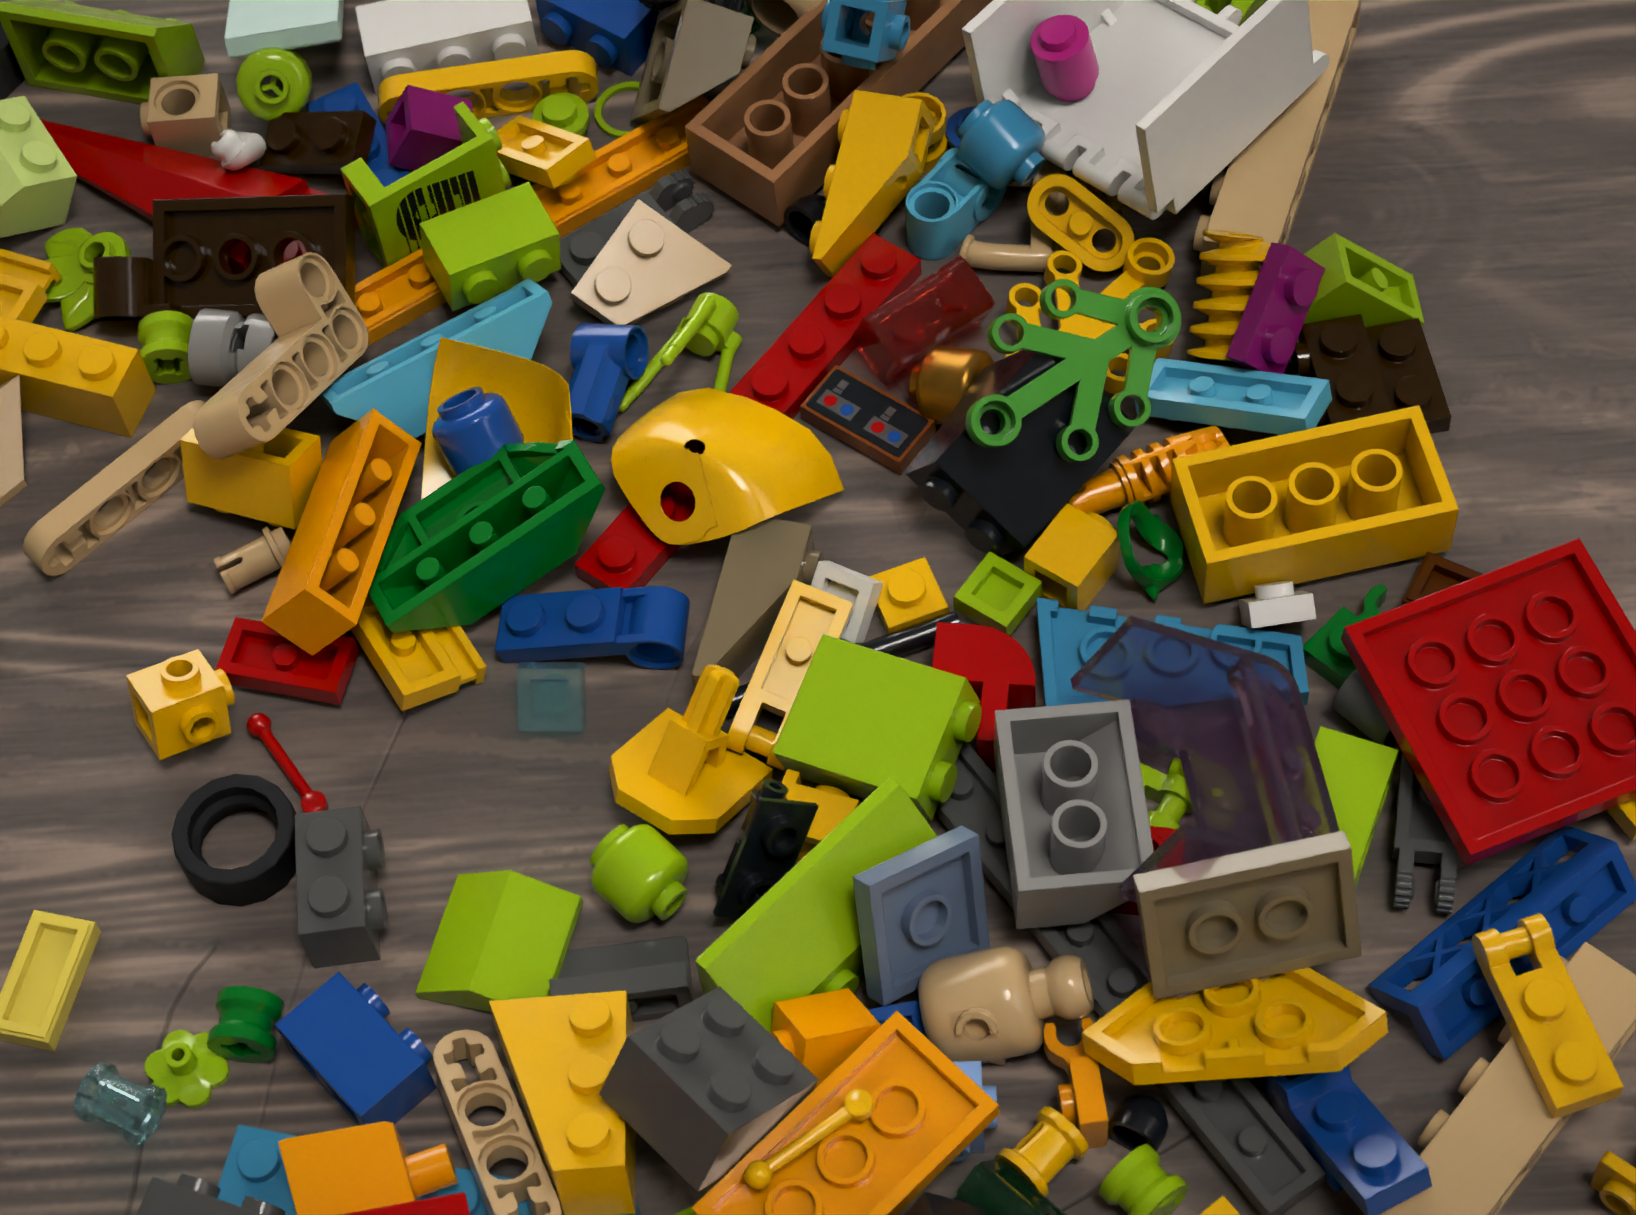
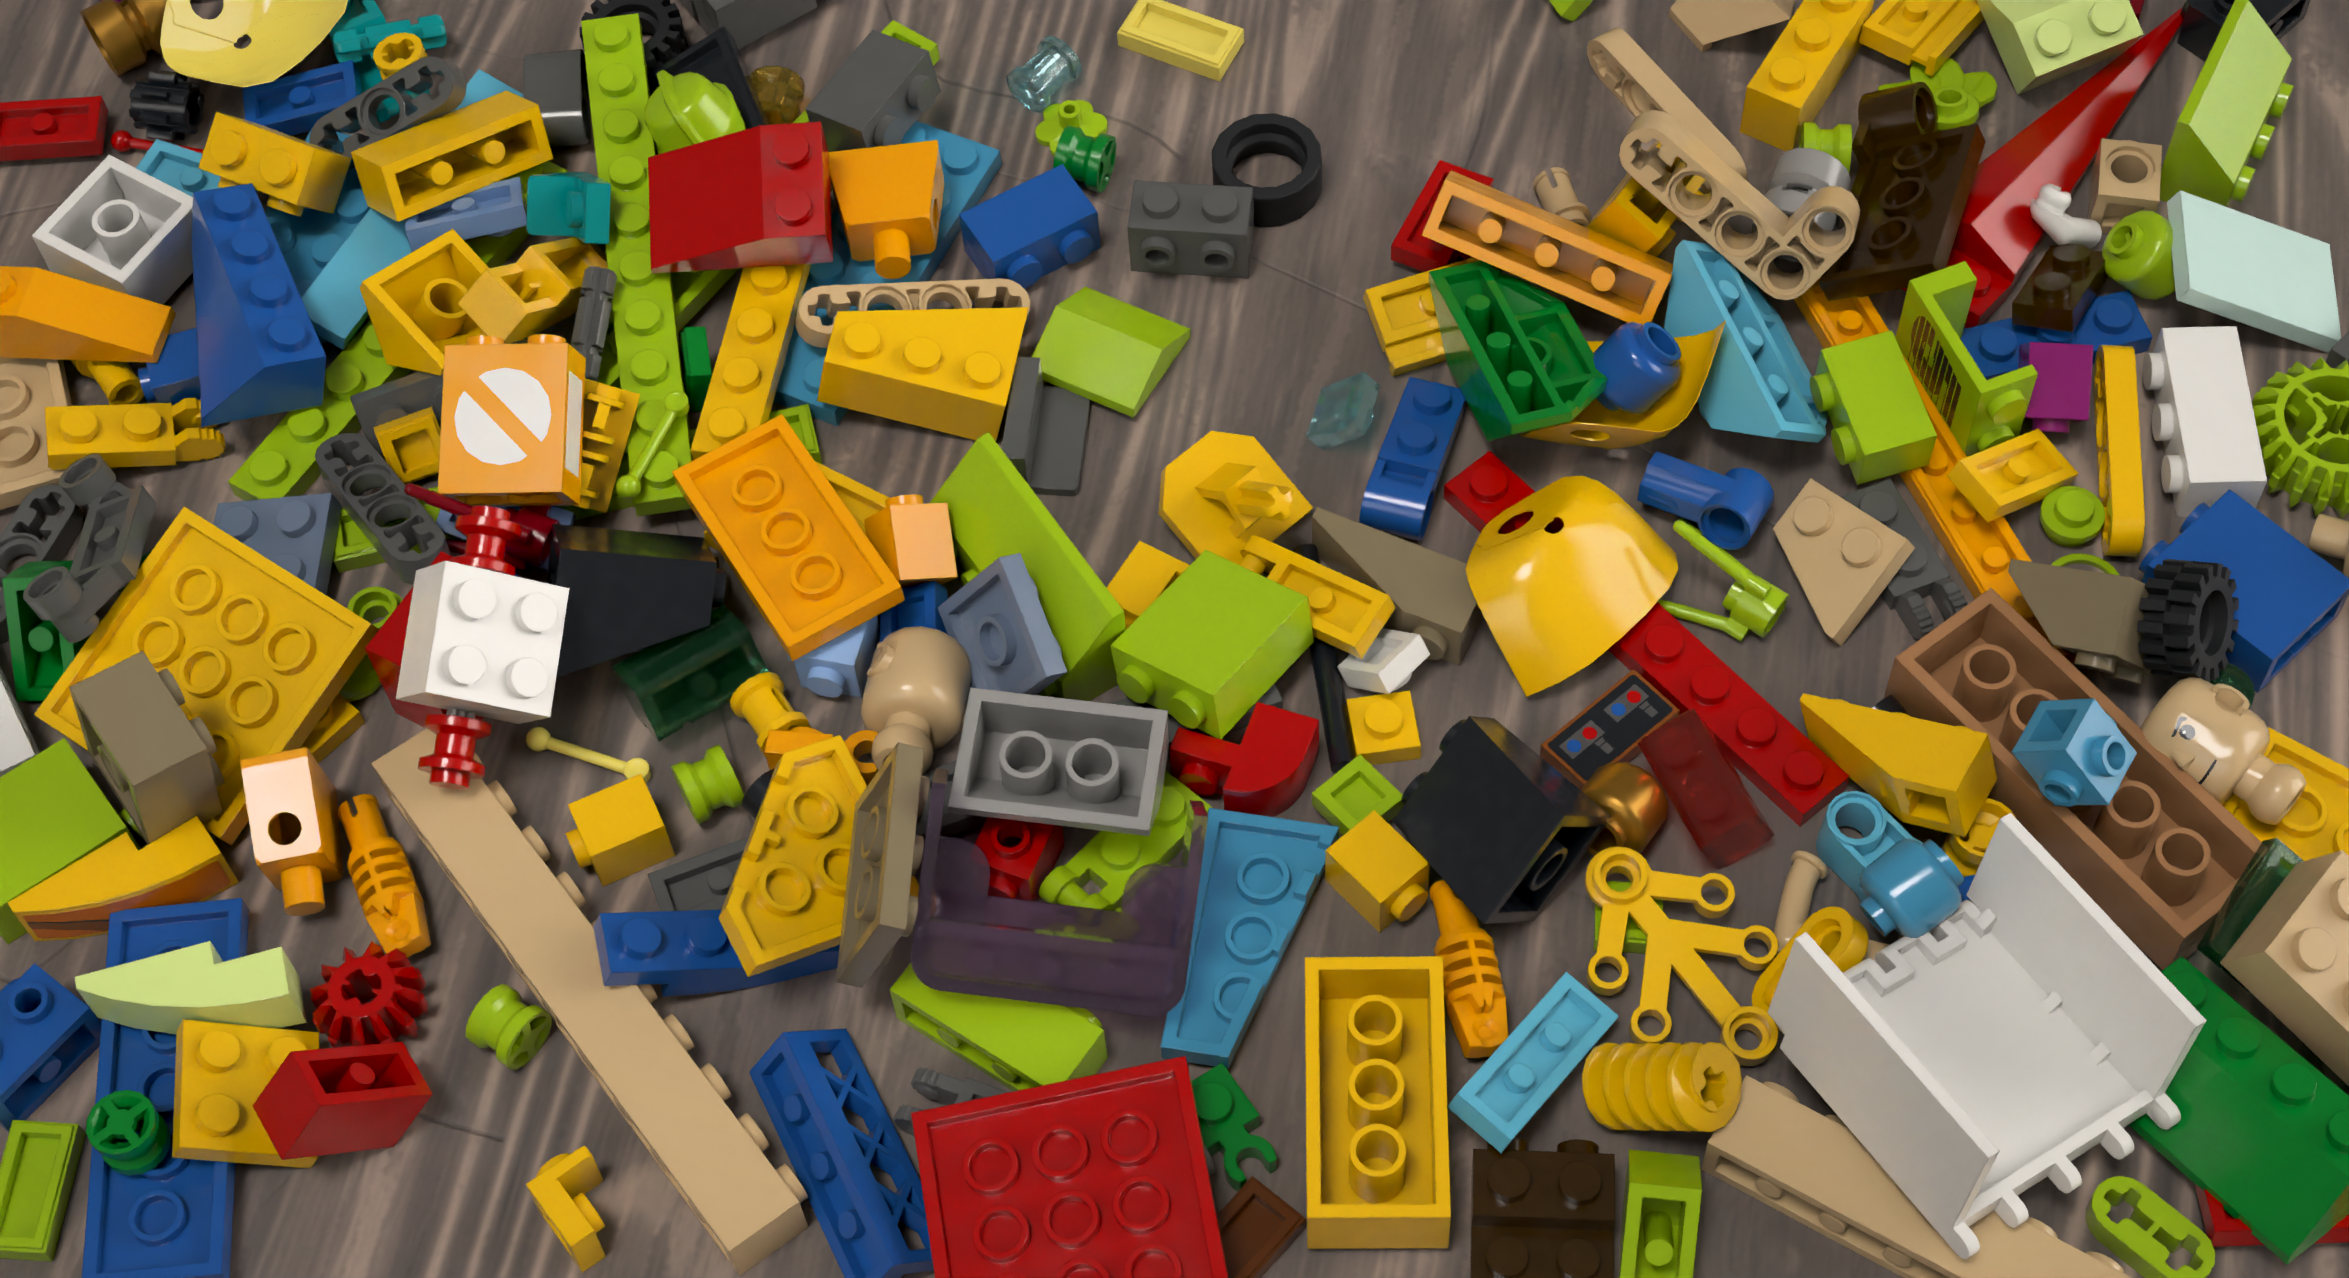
camera: 100 degrees right, 0 degrees up
(180, 703) = (1406, 128): yellow brick -> none
(260, 726) = (1296, 233): red hinge -> none
(639, 873) = (1134, 450): lime head -> none
(705, 1086) = (875, 430): dark grey brick -> none
(768, 851) = (1113, 535): black hinge -> none
(857, 1107) = (821, 538): yellow hinge -> none
(1065, 57) = (2011, 964): dark pink brick -> none
(1083, 363) = (1534, 843): bright green plant -> none
(1160, 536) = (1347, 939): green piece -> none
(1276, 310) = (1619, 1114): magenta plate -> none
(1276, 605) = (1268, 1045): white plate -> none
(1547, 1018) = (728, 1132): yellow plate -> none

